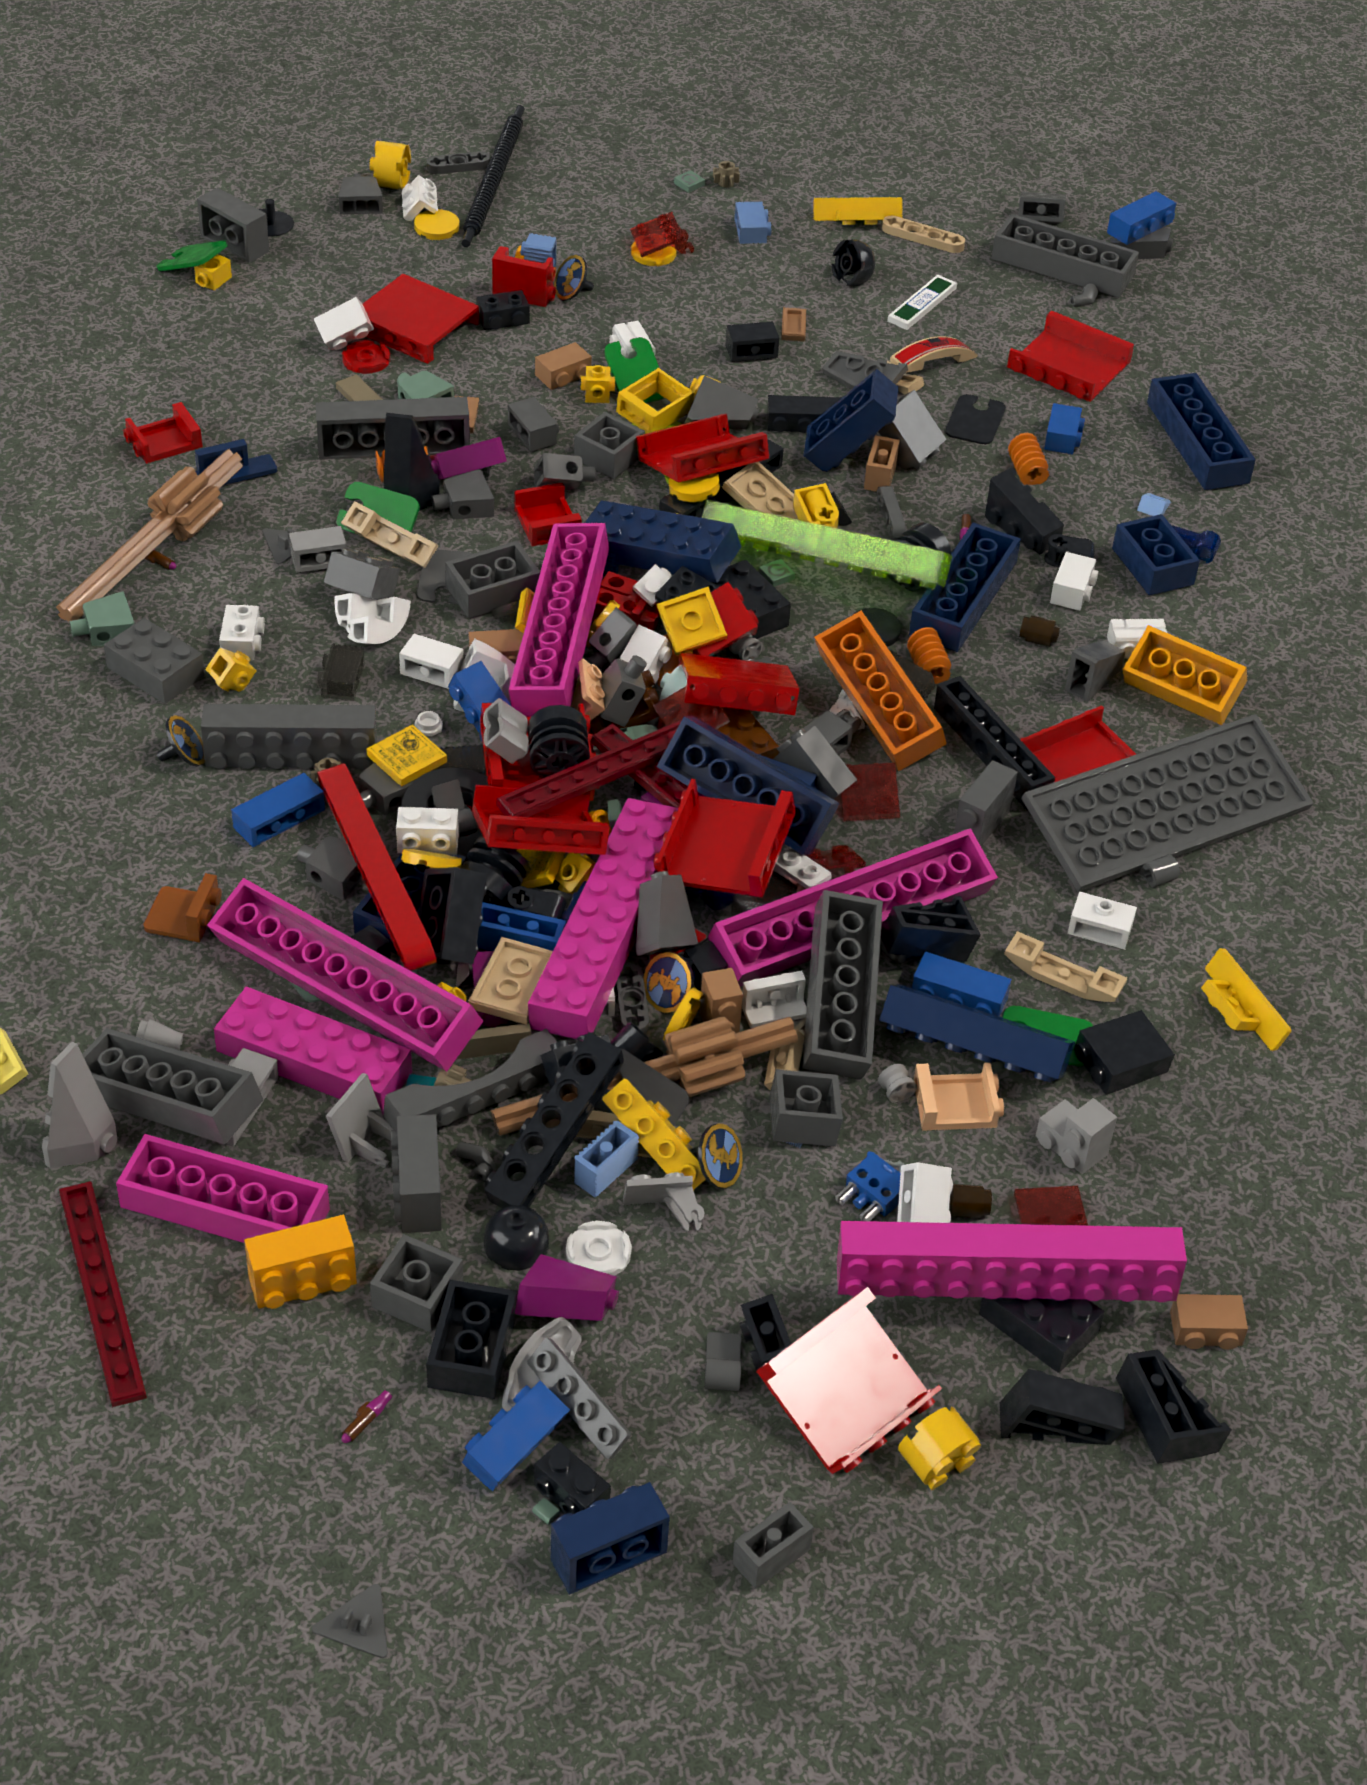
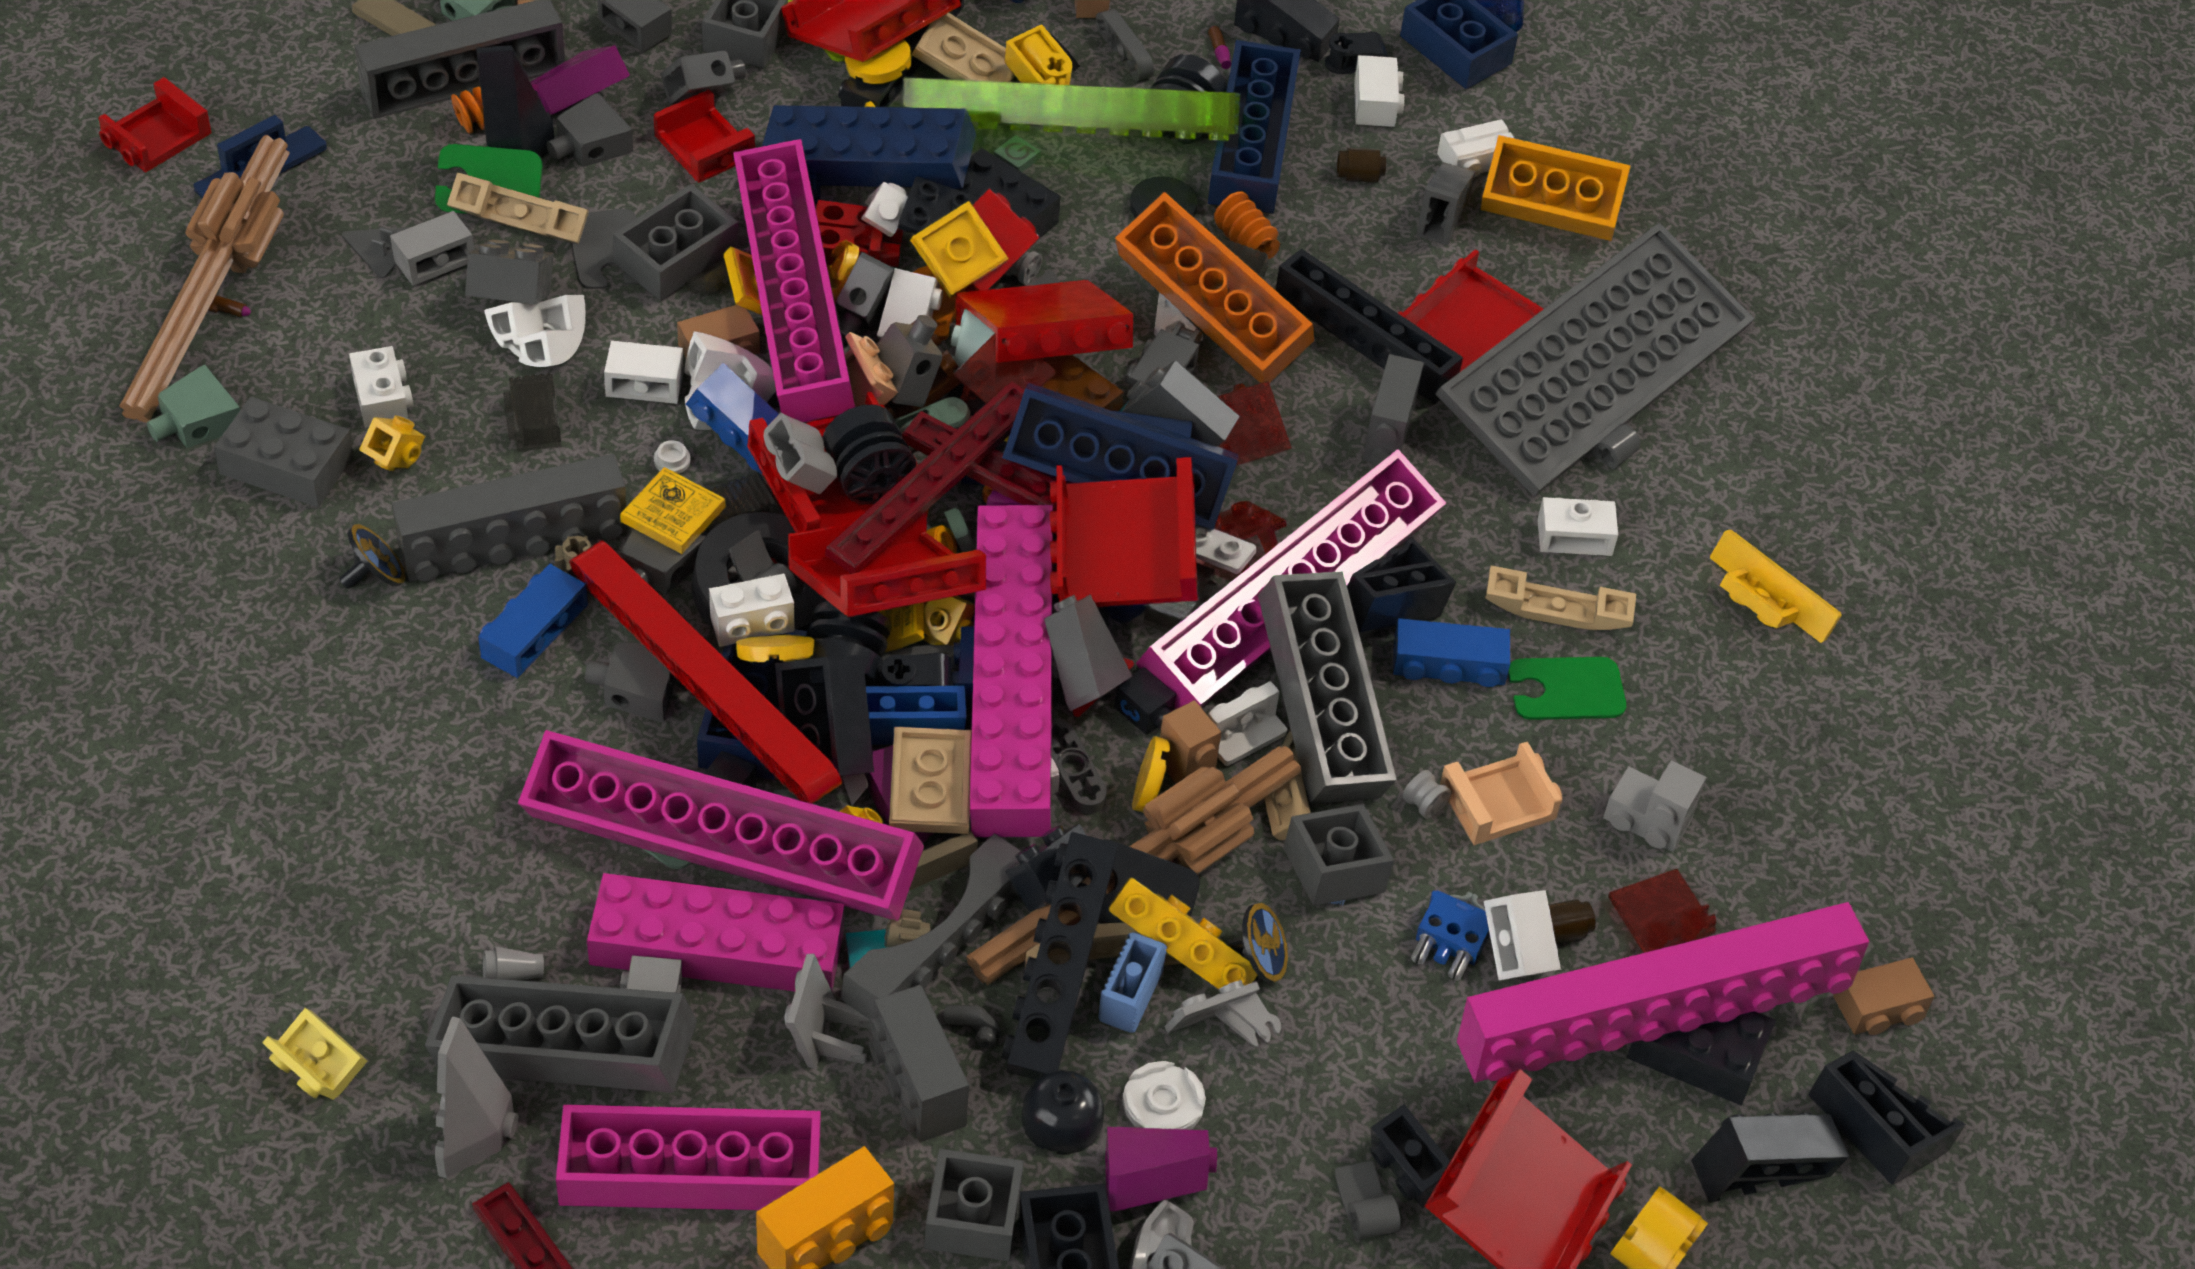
camera: 20 degrees left, 5 degrees up
(184, 912) = (470, 789): dark orange bracket -> none
(636, 1043) = (1111, 824): black piece -> none
(668, 981) = (1114, 733): shield -> none
(976, 1031) = (1500, 707): dark blue brick -> none
(1123, 1052) = (1665, 688): black brick -> none

